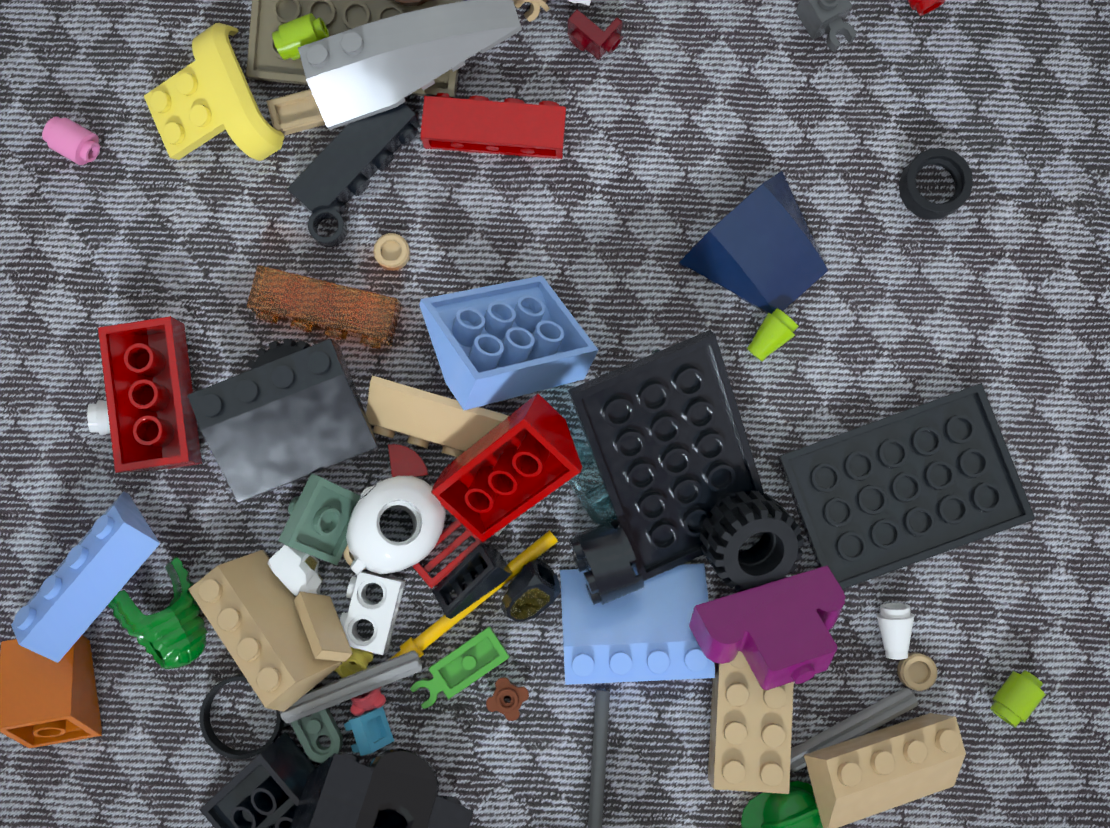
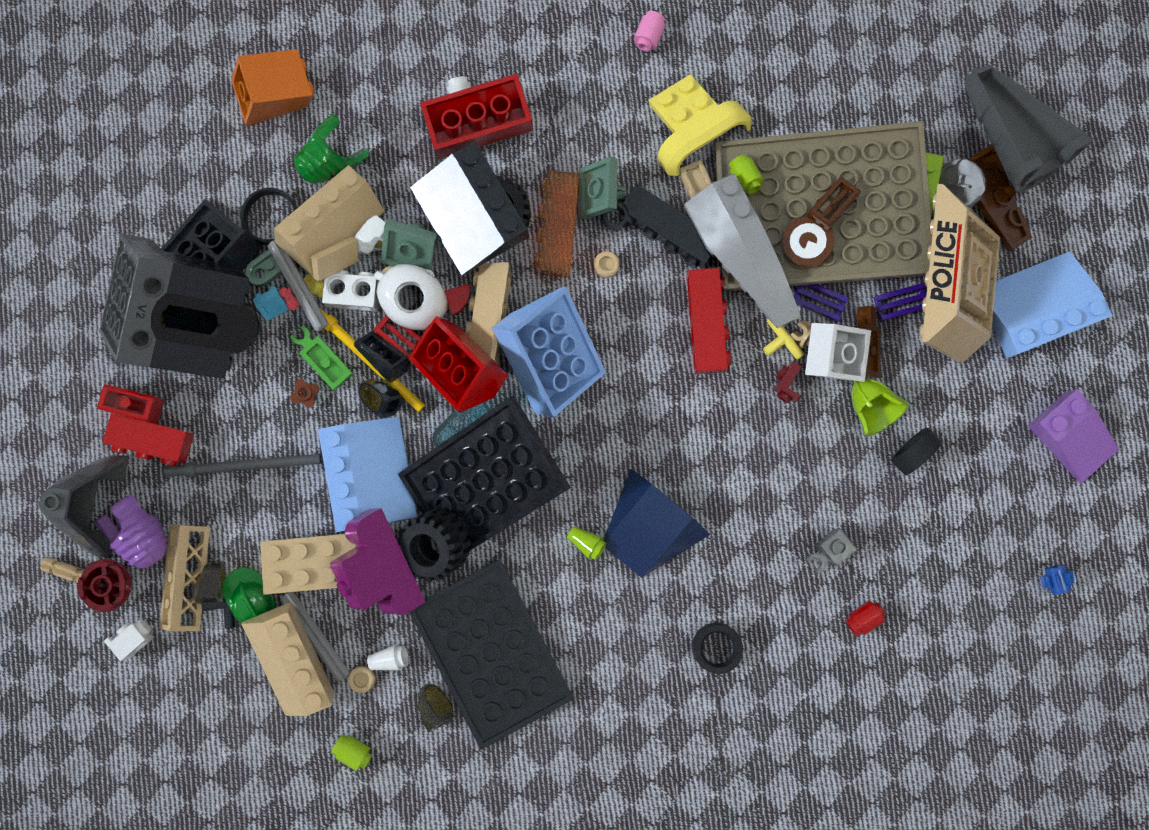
camera: 80 degrees right, 0 degrees up
(85, 581) = (344, 96): light blue slope -> none
(284, 240) = (599, 188): none -> sand green tile
(532, 32) = (783, 339): none -> light yellow piece
(607, 562) = (406, 445): black brick -> none
(970, 574) = (434, 707): none -> clear smoke rock

